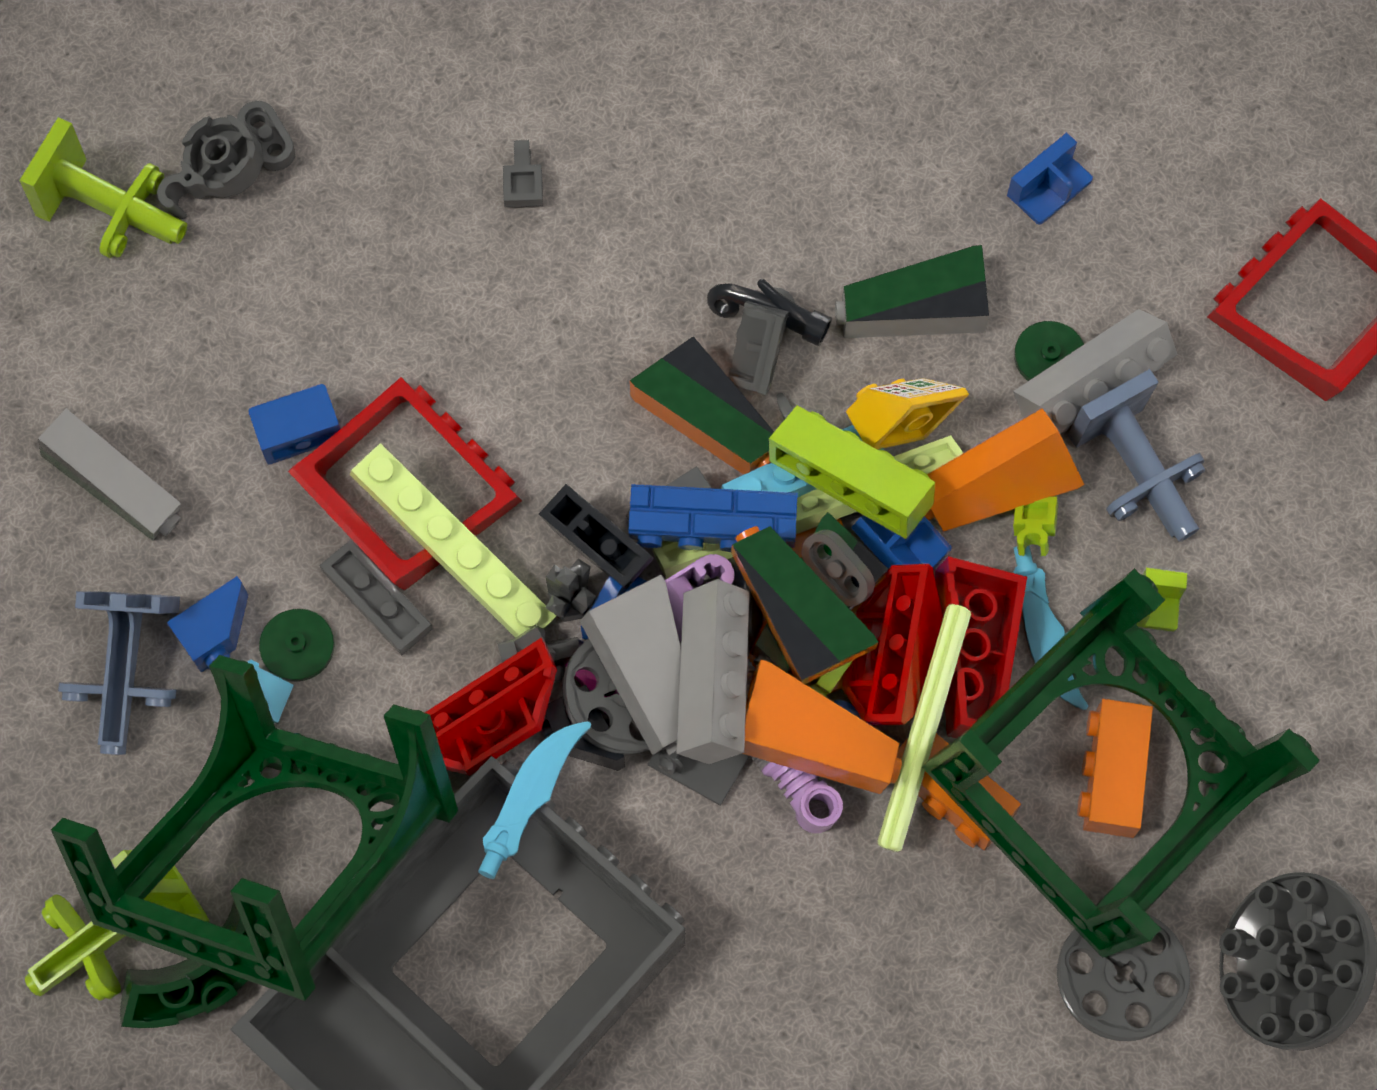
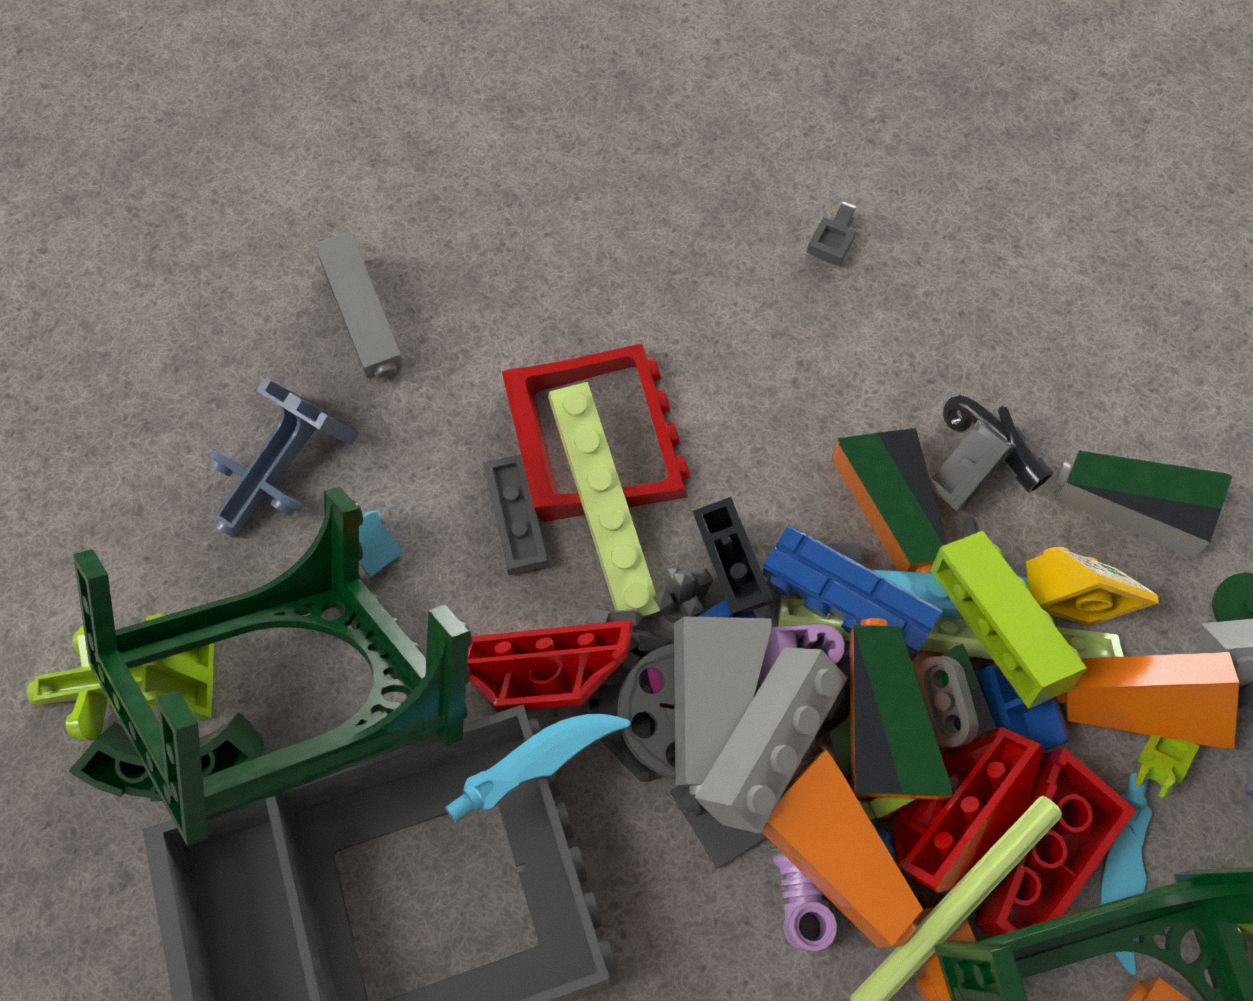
camera: 30 degrees right, 5 degrees down
(59, 174) = (466, 64): lime piece -> none
(205, 171) = (592, 113): dark grey piece -> none
(212, 624) = (368, 466): blue slope -> none
(271, 135) = (643, 112): dark grey plate -> none
(294, 423) = (530, 337): blue panel -> none
(296, 645) = (427, 520): dark green piece -> none

